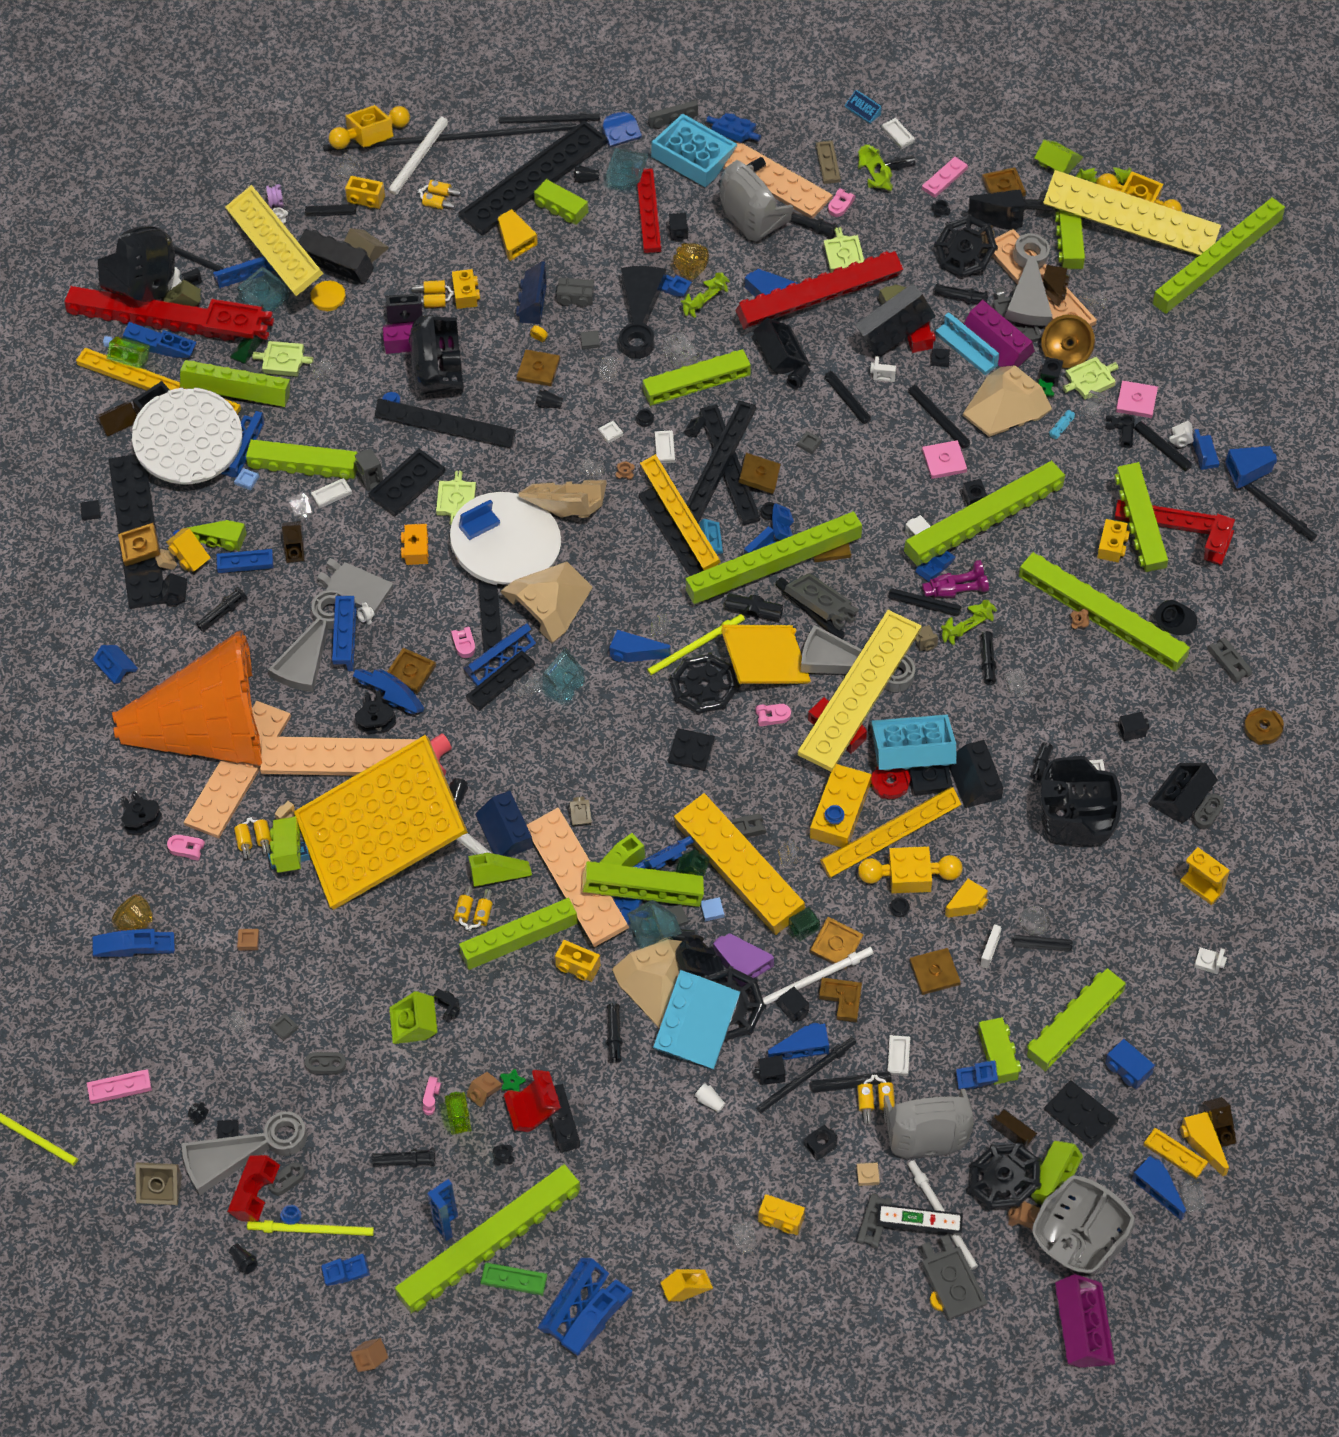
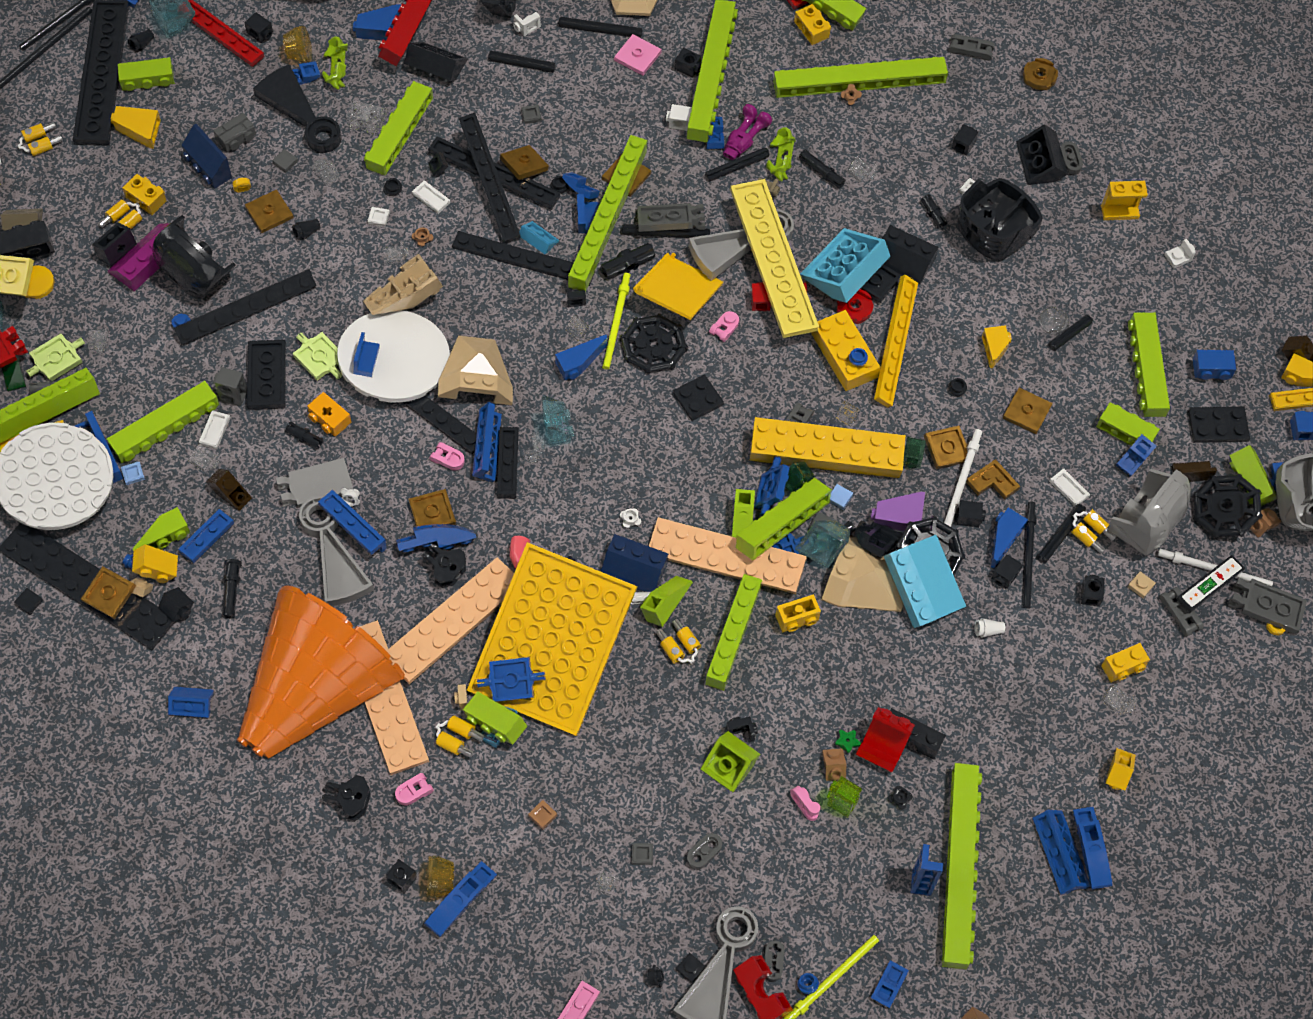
camera: 50 degrees left, 5 degrees up
(112, 894) = (401, 876): none -> black brick
(324, 827) = (511, 679): none -> blue plate
(385, 545) = (304, 435): none -> black pin
(413, 1157) = (844, 859): black pin -> none
(514, 1279) = (1006, 876): bright green tile -> none
(541, 787) = (630, 513): none -> white plate
(580, 811) = (674, 506): dark tan bracket -> none
(614, 1041) = (883, 647): black pin -> none
(680, 513) = (502, 234): yellow plate -> none
(682, 603) = (576, 298): none -> black plate
(797, 377) = (472, 74): black cone -> none
(910, 869) = (939, 355): yellow brick -> none
(991, 946) = (1045, 362): white tile -> none
(1176, 617) = (910, 44): black piece -> none

